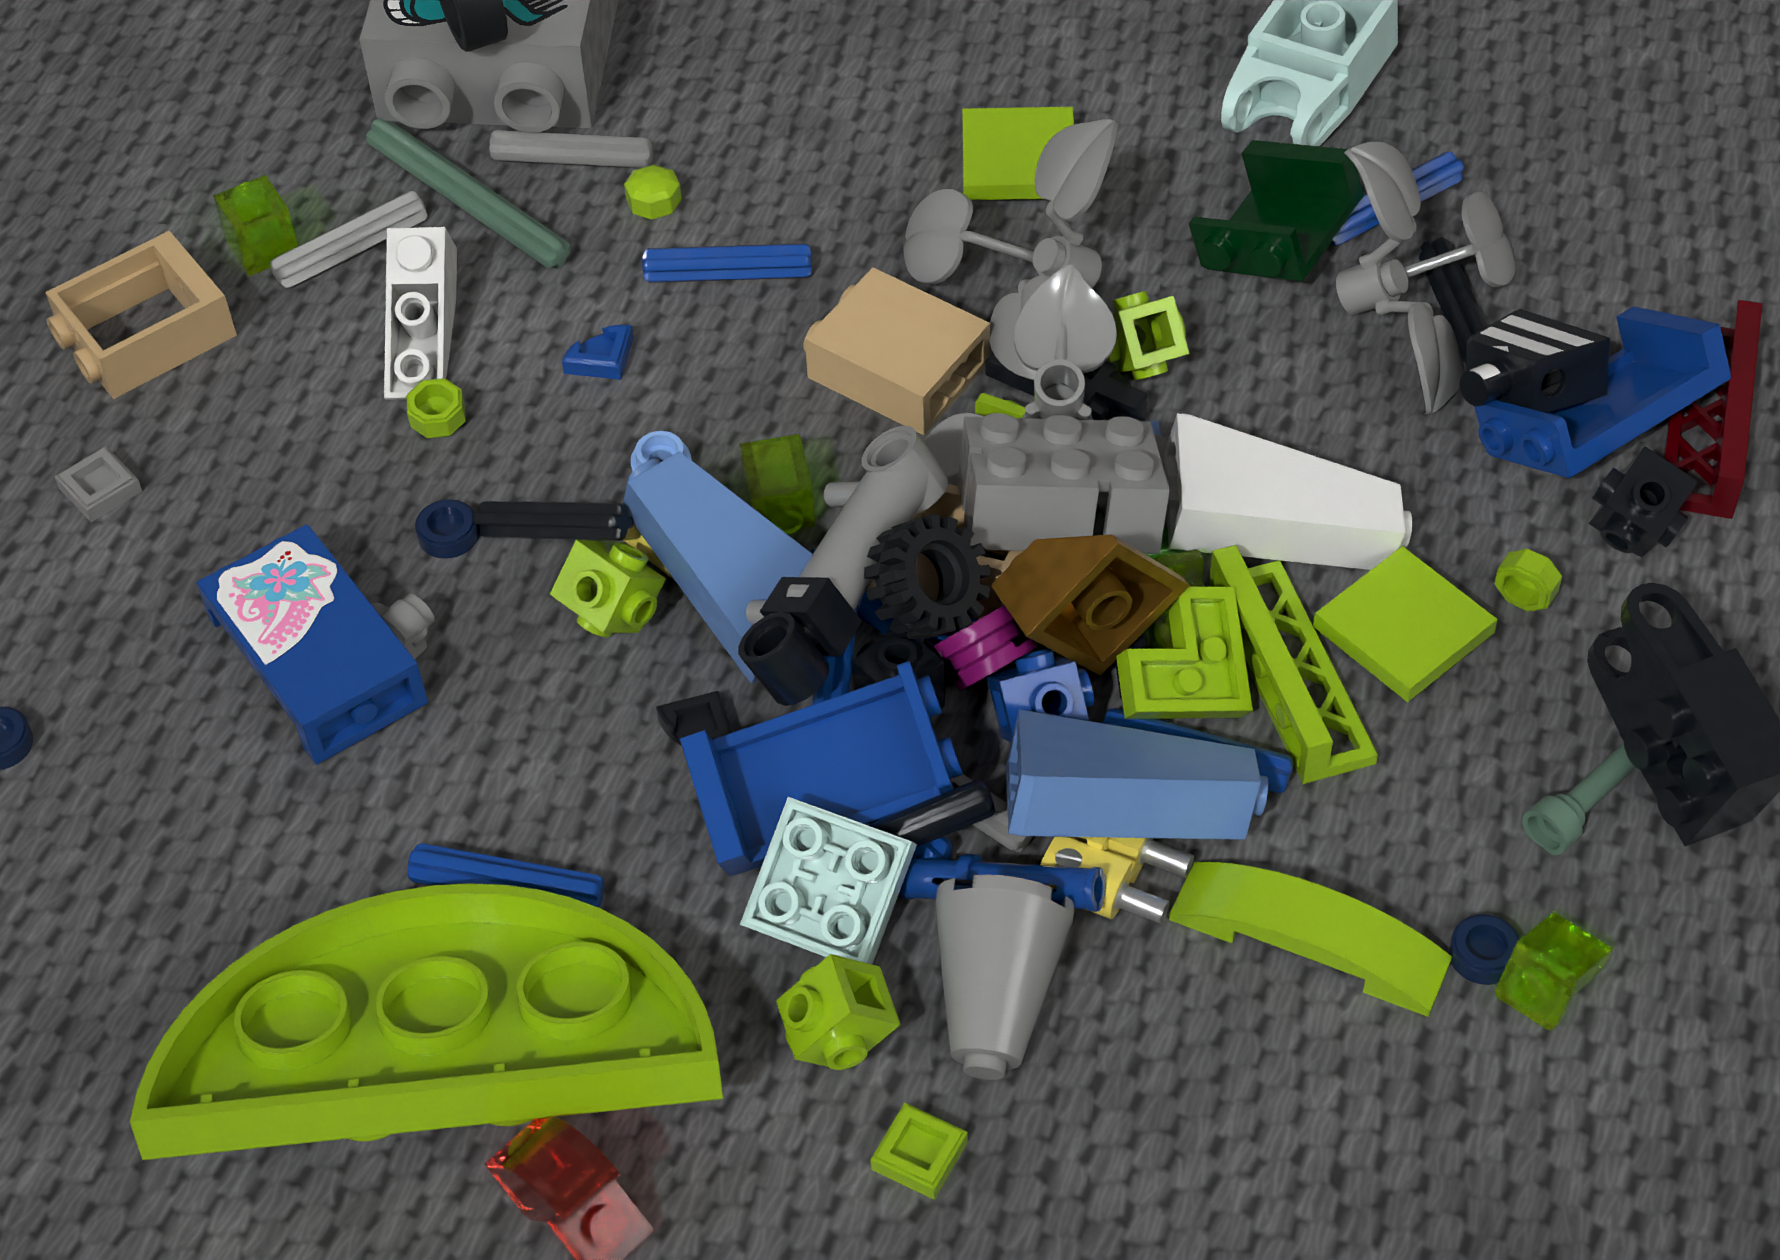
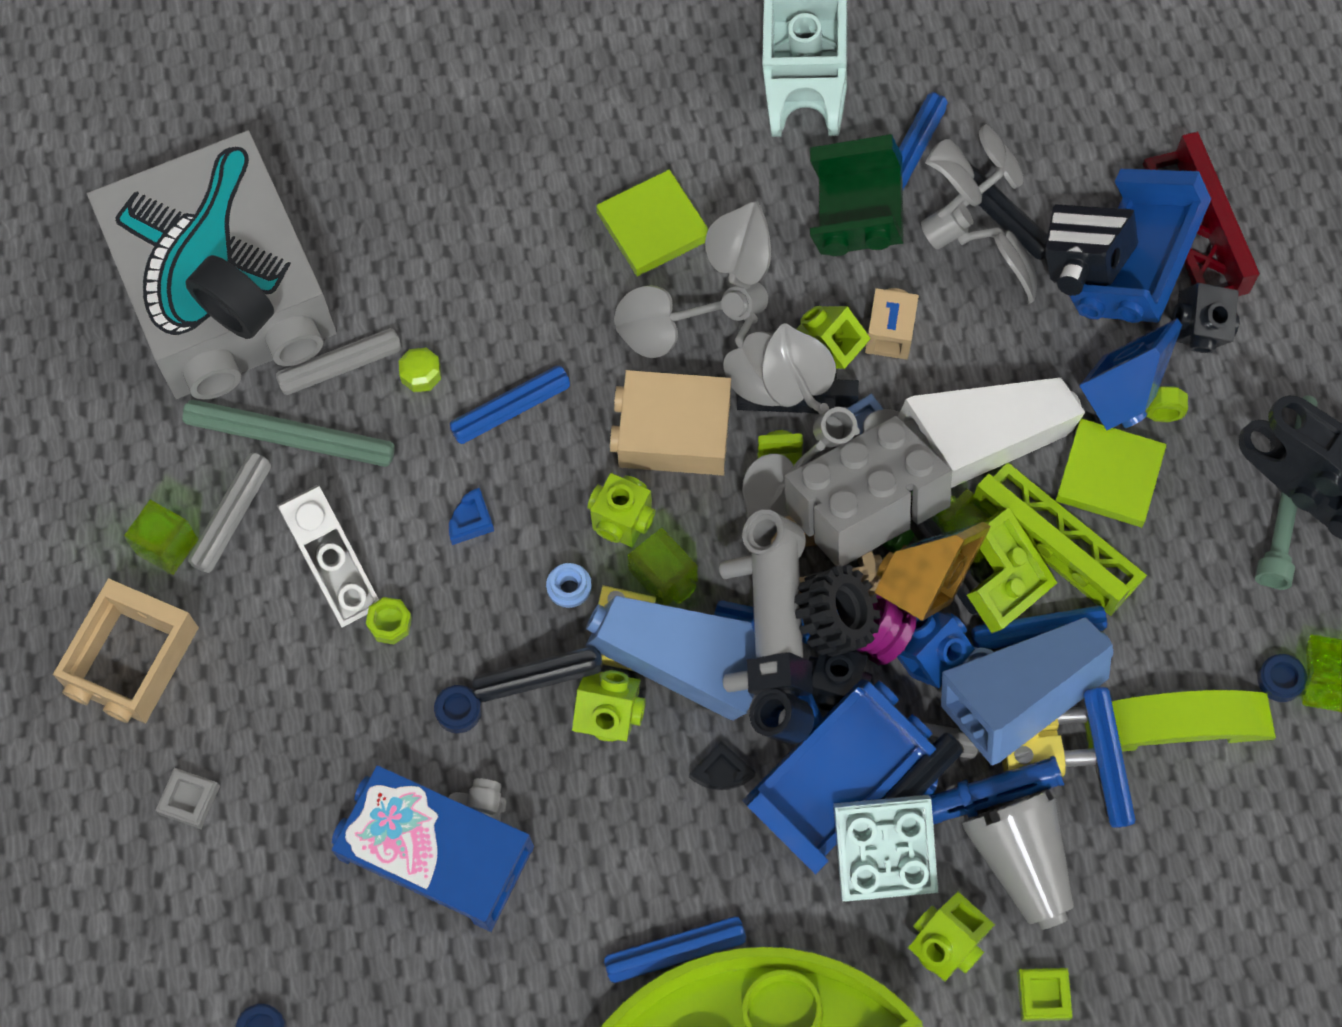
camera: 30 degrees left, 15 degrees up
(770, 401) = (628, 518): none -> lime brick
(1182, 920) = (1109, 757): none -> blue axle
(1231, 357) = (892, 323): none -> tan brick
(1492, 515) = (1130, 377): none -> blue slope

